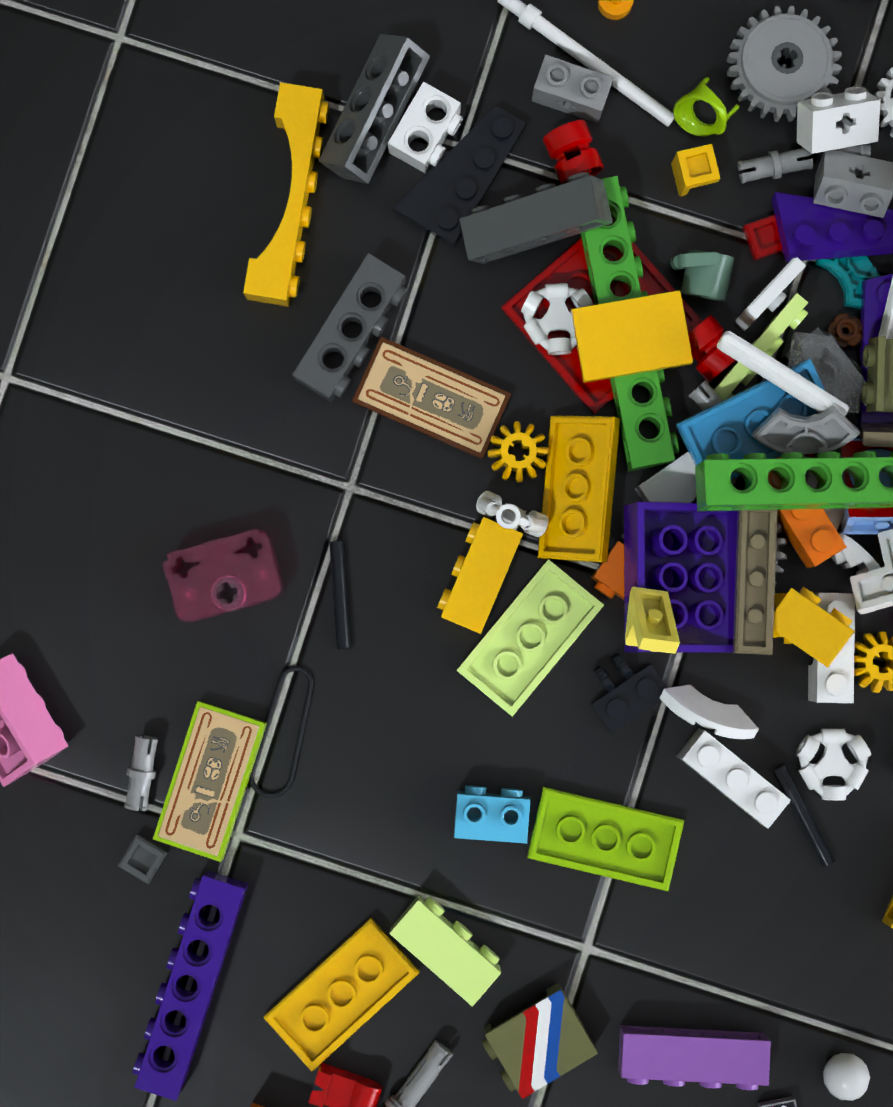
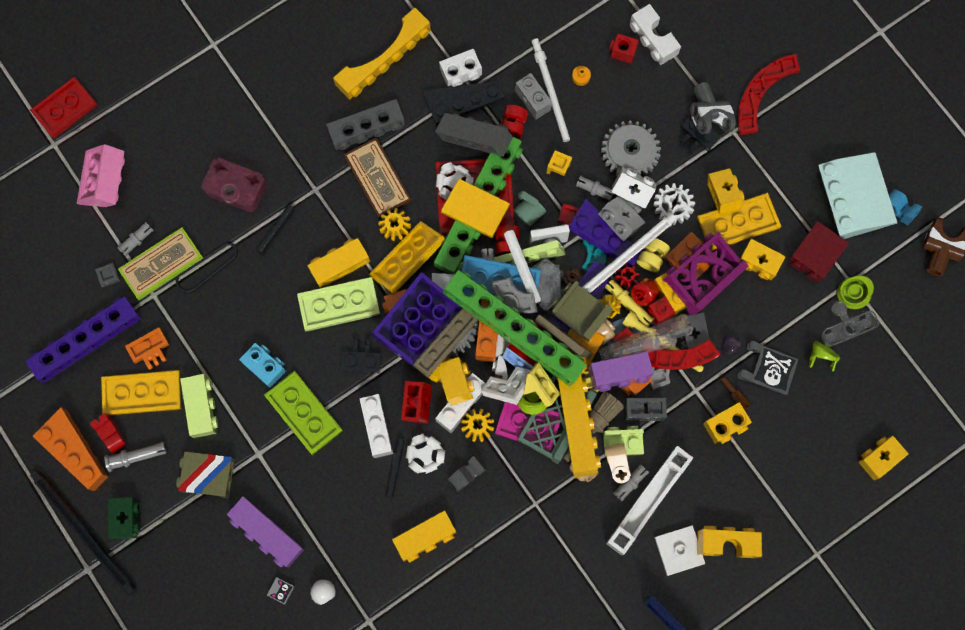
camera: 35 degrees right, 10 degrees down
(300, 921) = (148, 348): none -> orange hinge
(374, 108) = (445, 45): dark grey brick -> none
(510, 515) = (369, 246): white piece -> none
(651, 621) = (386, 321): light yellow slope -> none
(685, 115) = (573, 139): lime piece -> none
(694, 707) = (384, 383): white tile -> none
(766, 698) = (416, 402): none -> red brick

